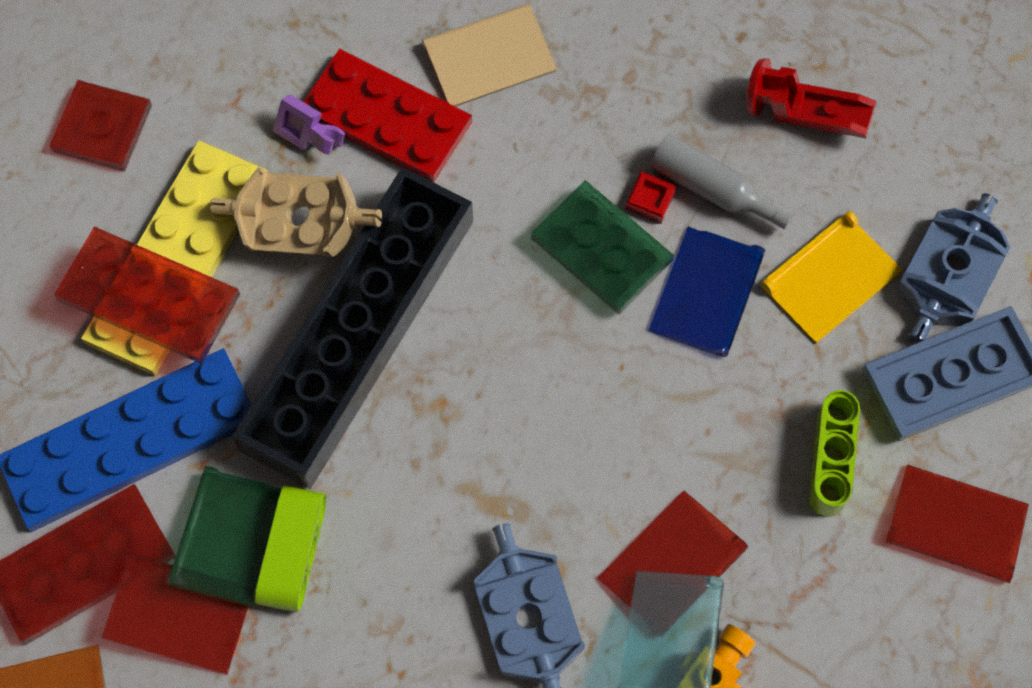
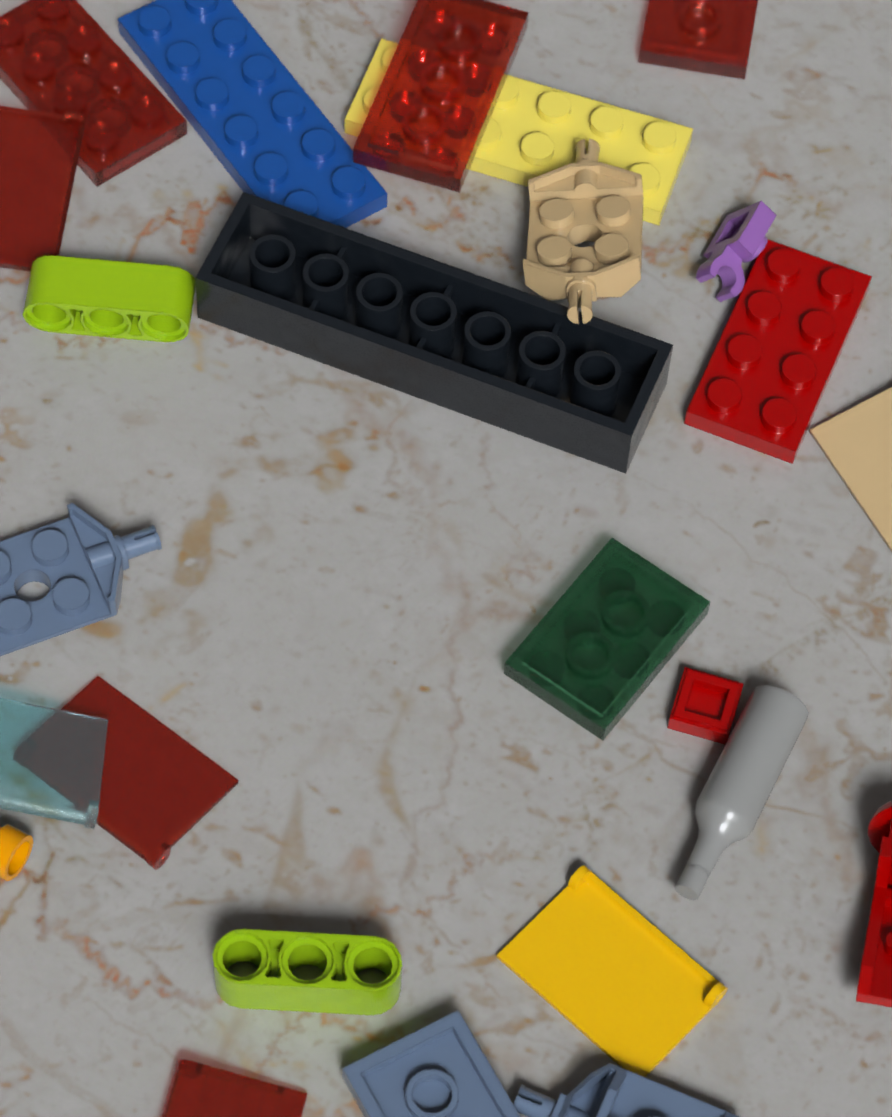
camera: 80 degrees right, 10 degrees down
(225, 537) = (120, 218): clear green piece -> none
(707, 291) = (562, 795): clear blue piece -> none

